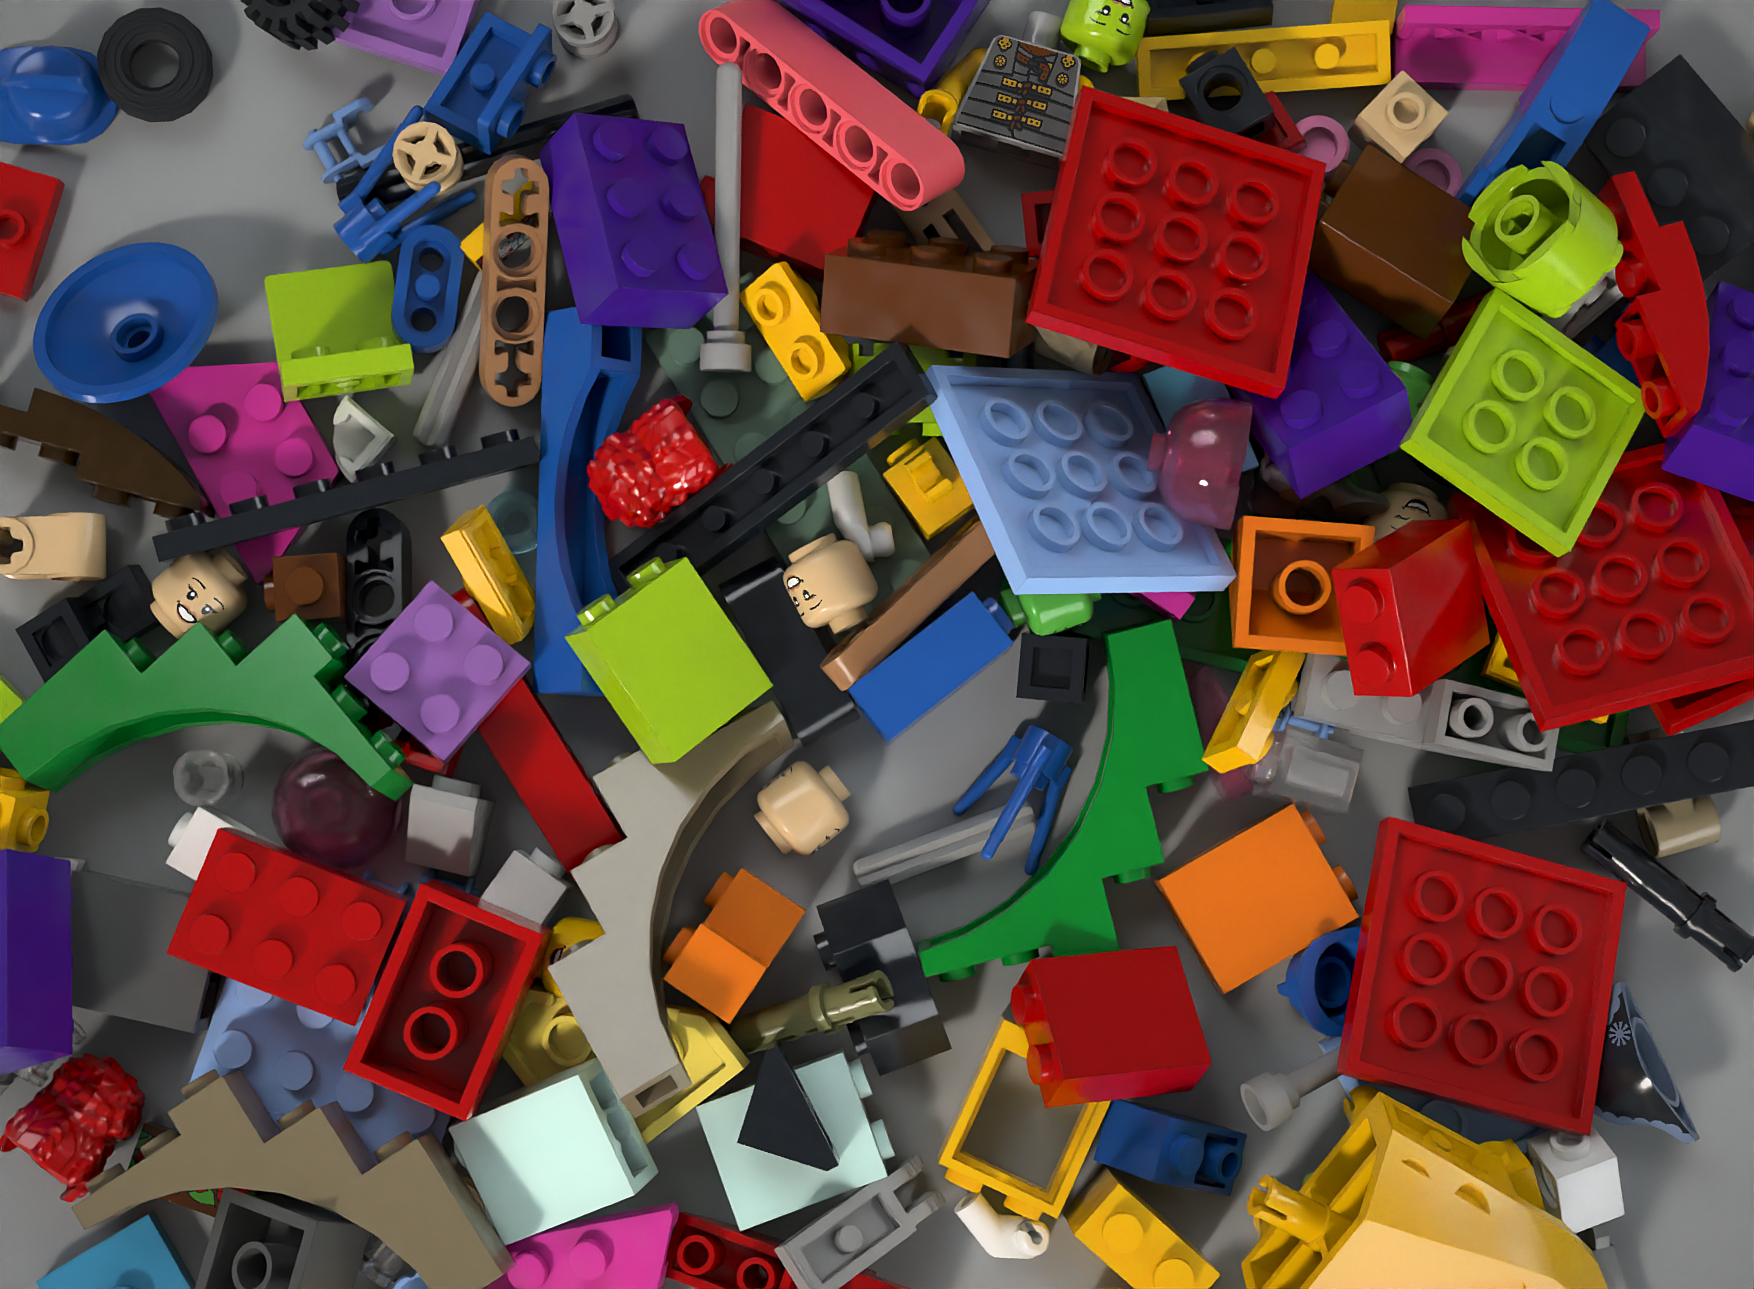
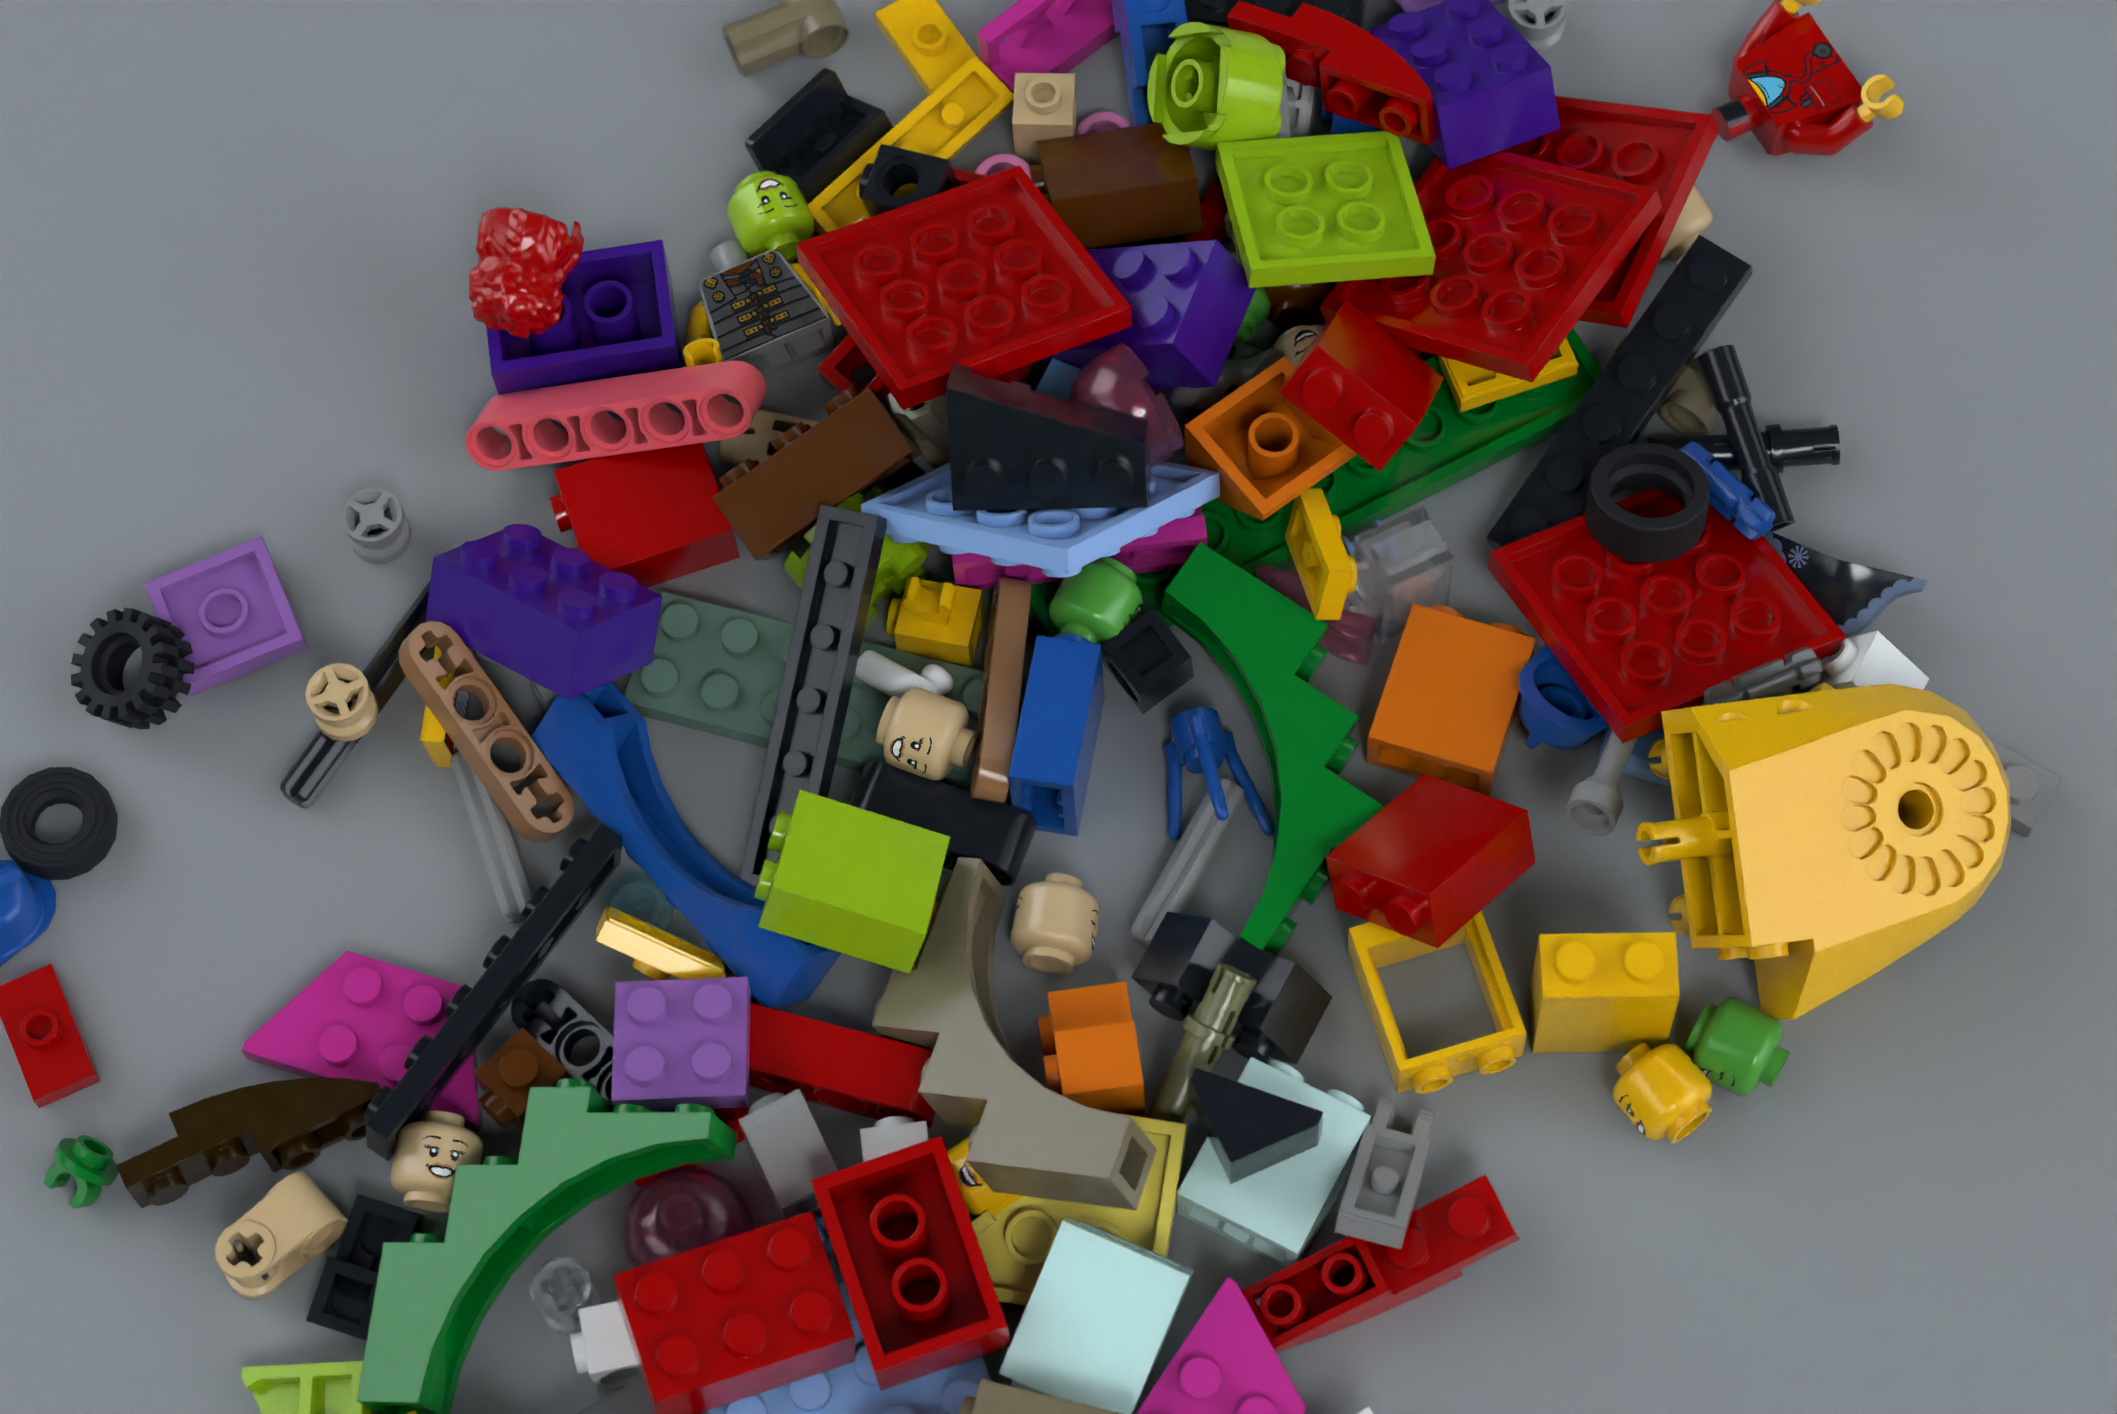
camera: 35 degrees left, 20 degrees down
(125, 322) = (201, 1009): blue dish -> none
(319, 139) = (281, 764): medium blue piece -> none
(336, 331) = (380, 886): lime bracket -> none
(358, 439) = (458, 953): white tile -> none
(372, 226) = (339, 791): blue plant -> none
(427, 291) = (423, 806): blue plate -> none
(490, 81) = (342, 615): blue bracket -> none
(652, 465) = (713, 767): red hair -> none
(726, 344) = (694, 645): light grey piece -> none
(789, 320) = (736, 588): yellow bracket -> none
(1002, 1234) = (1502, 1100): white arm -> none
(1101, 455) = (1040, 450): none -> black wedge
(1170, 1147) = (1558, 907): blue slope -> none
(1440, 719) = (1453, 462): light grey slope -> none
(1488, 1122) = (1769, 679): none -> dark grey axle
(1587, 867) = (1646, 537): none -> black tyre
(1616, 925) = (1732, 496): none -> blue axle
(1657, 935) = (1733, 402): none -> black piece

